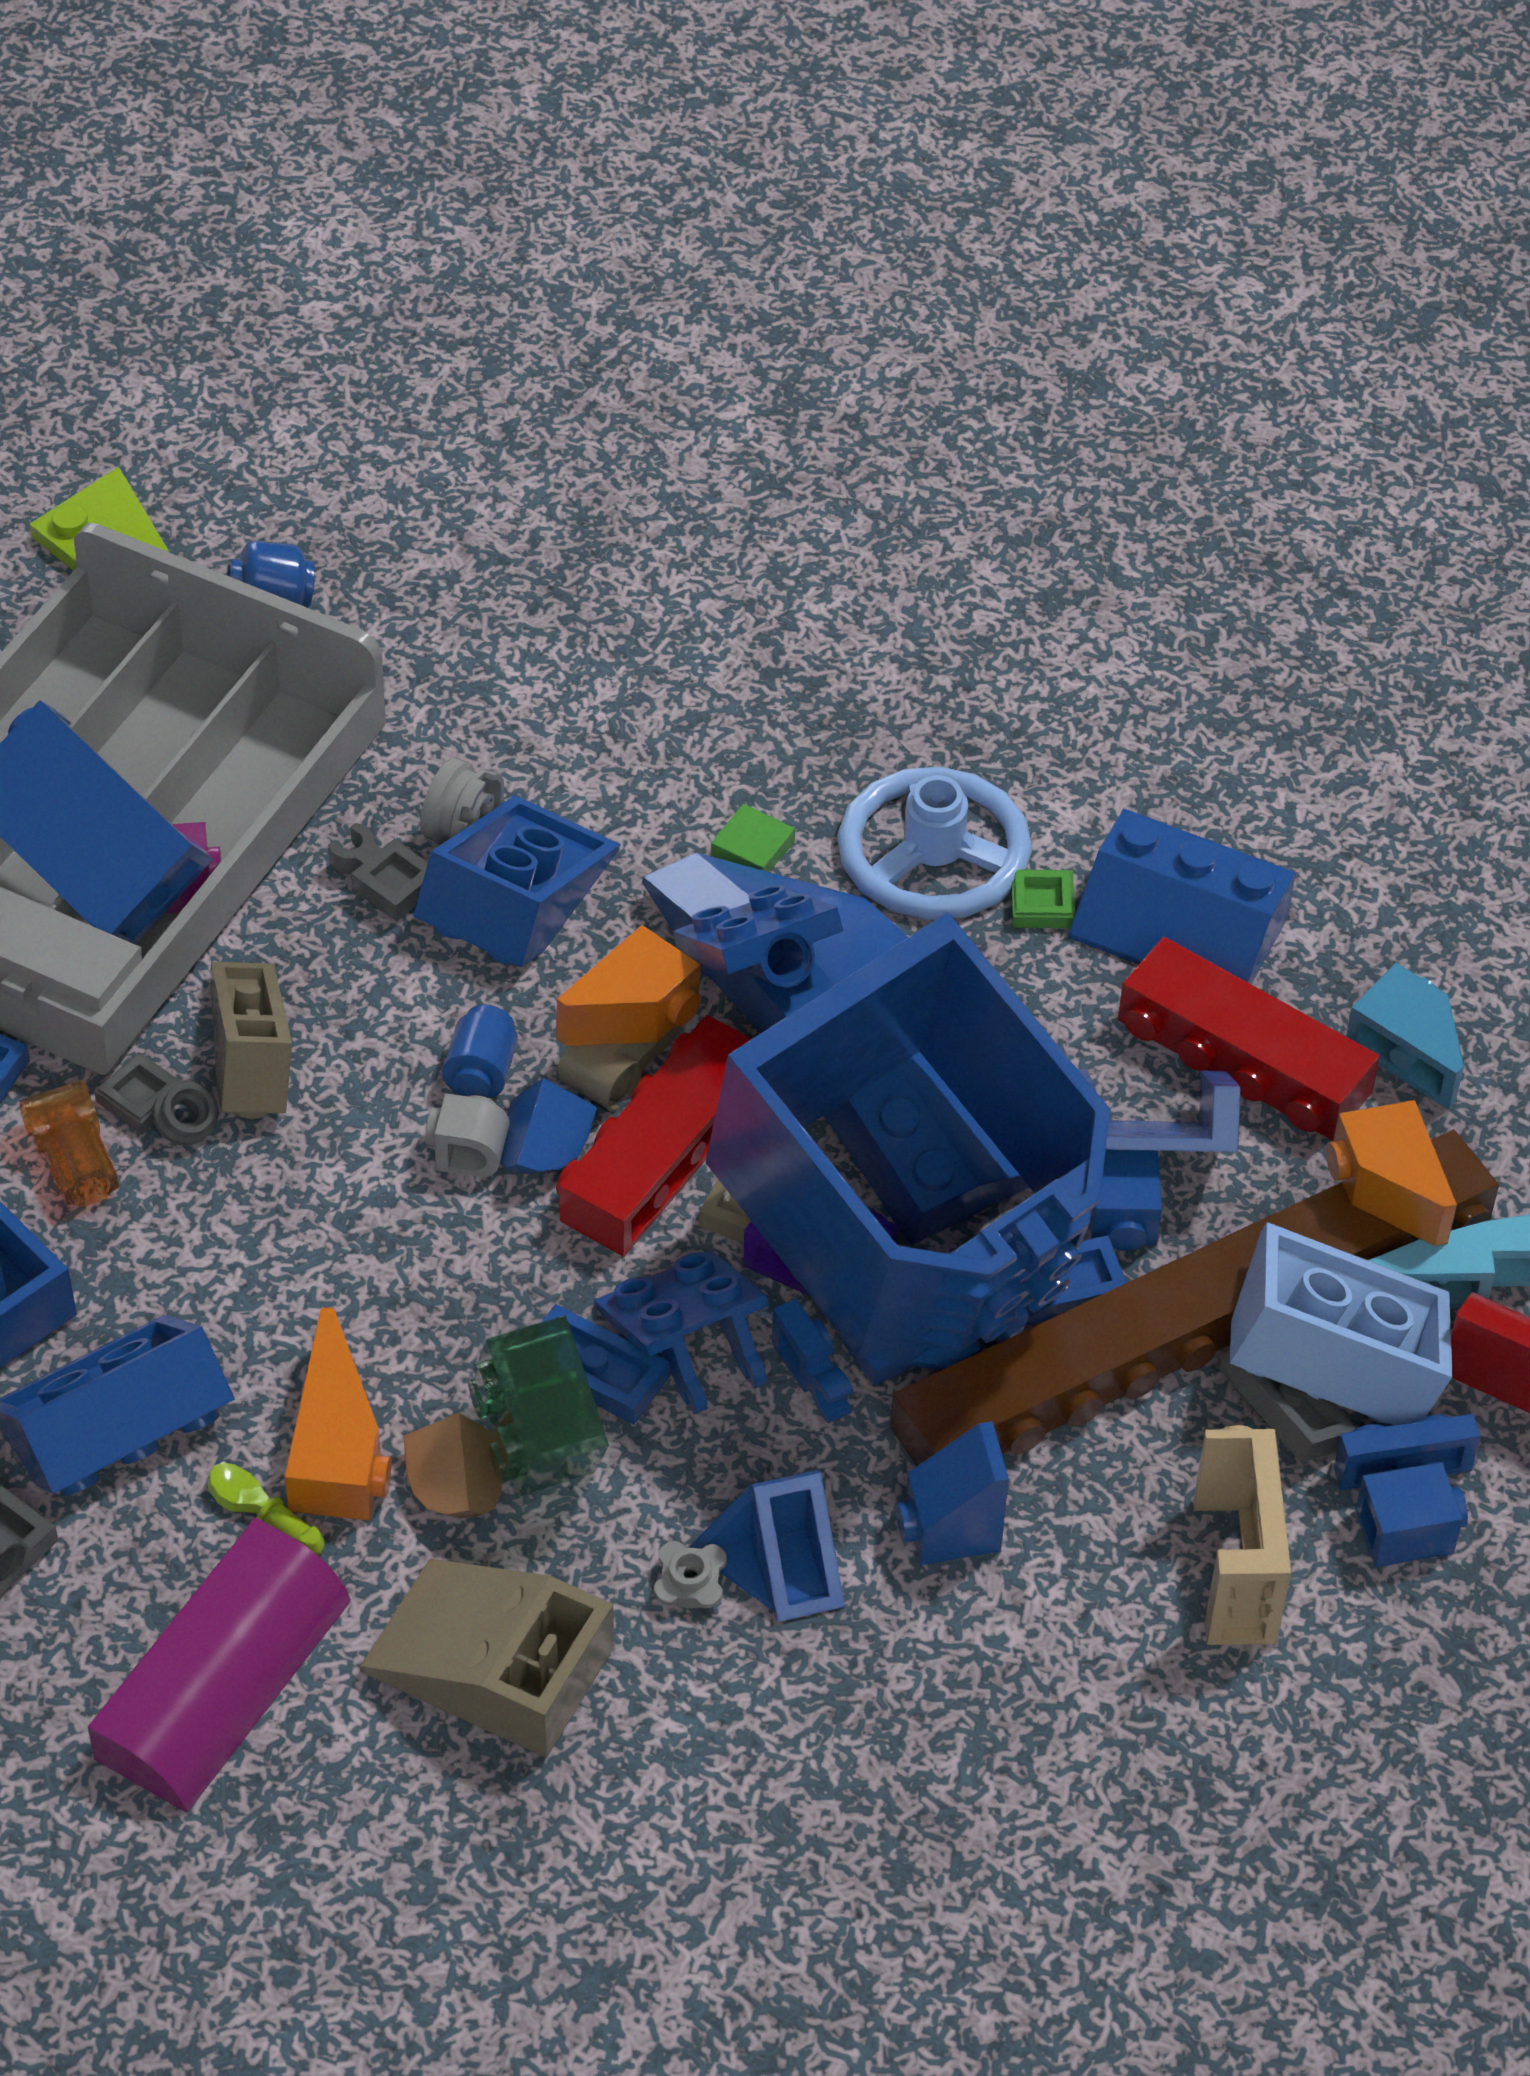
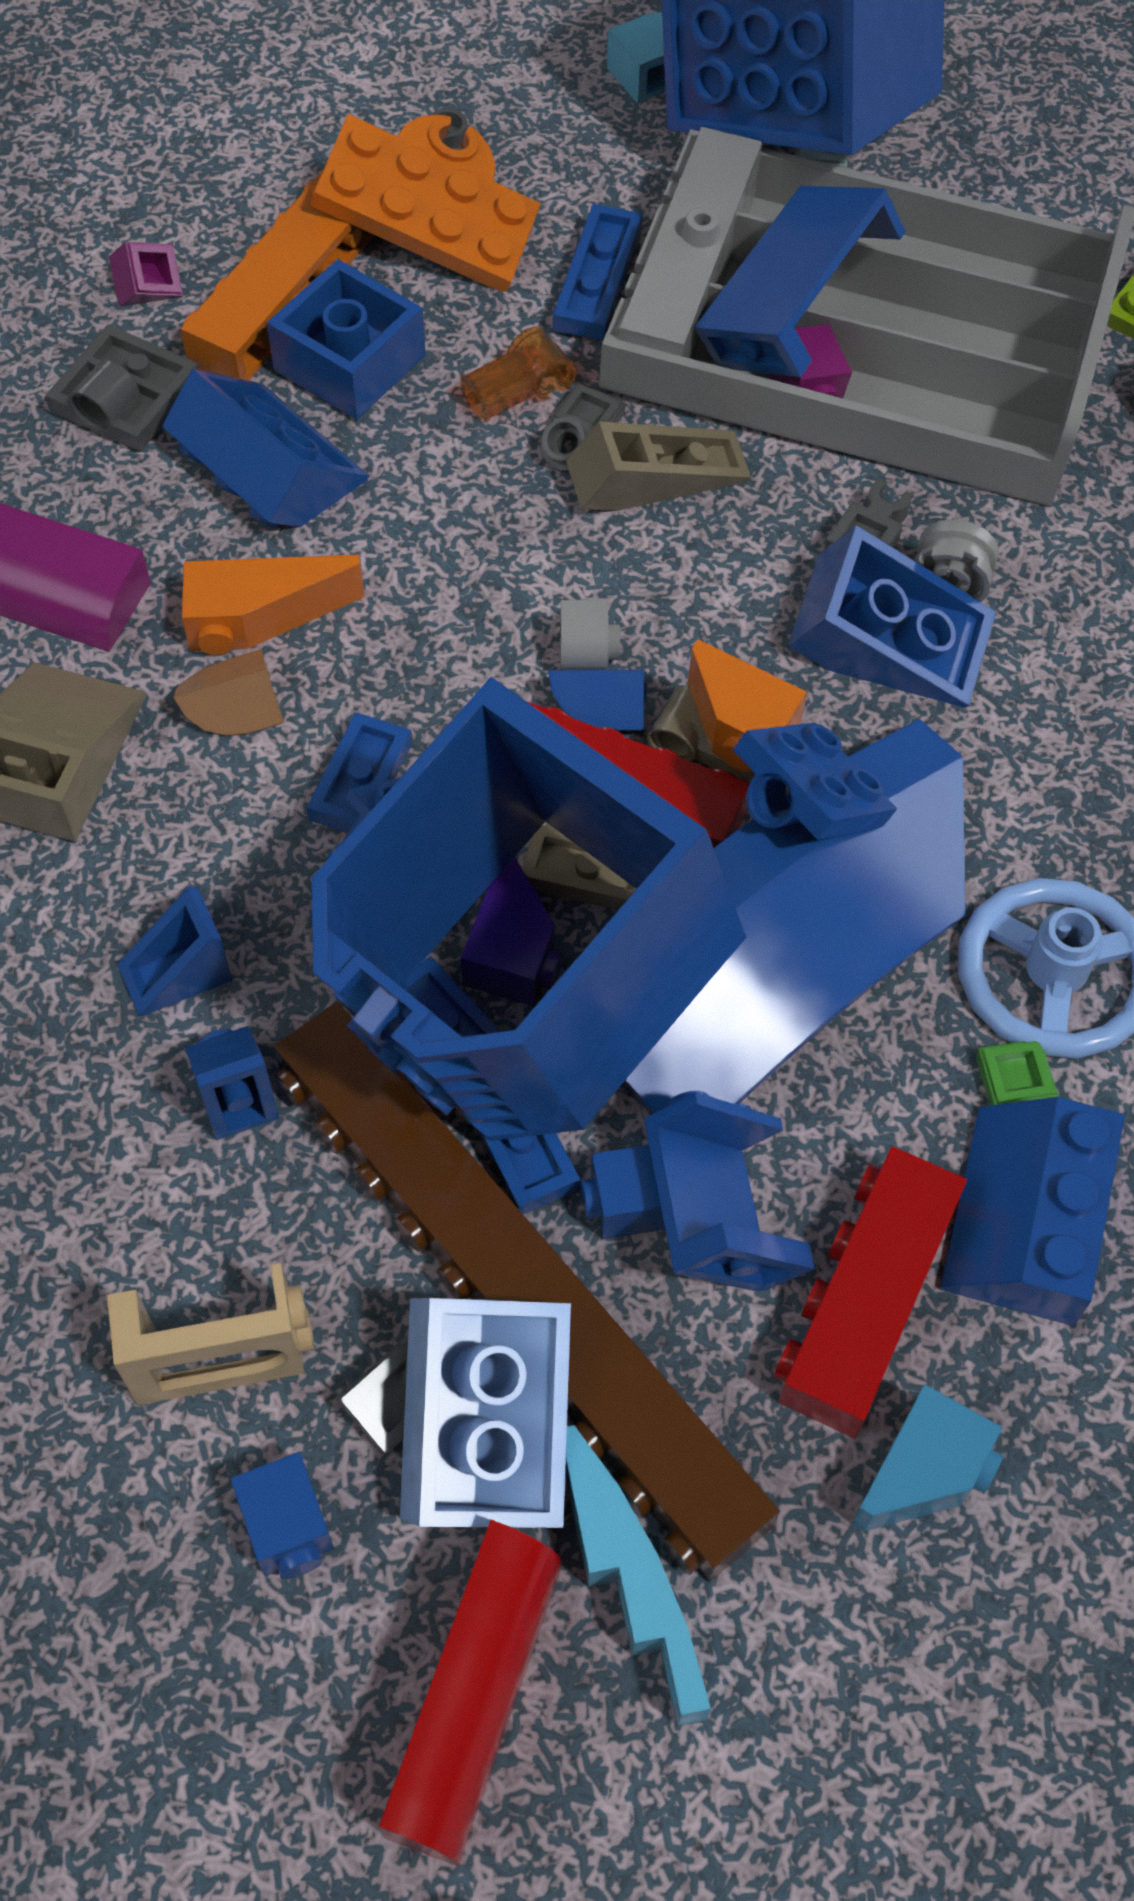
camera: 80 degrees right, 10 degrees up
(242, 1492) = (203, 546): lime piece -> none
(480, 1052) = (675, 627): blue brick -> none
(538, 1407) = (263, 717): clear green brick -> none
(690, 1592) = (153, 897): light grey plate -> none
(753, 839) = (1005, 810): bright green tile -> none
(1393, 1170) = (685, 1435): orange slope -> none
(1408, 1445) = (376, 1533): blue plate -> none

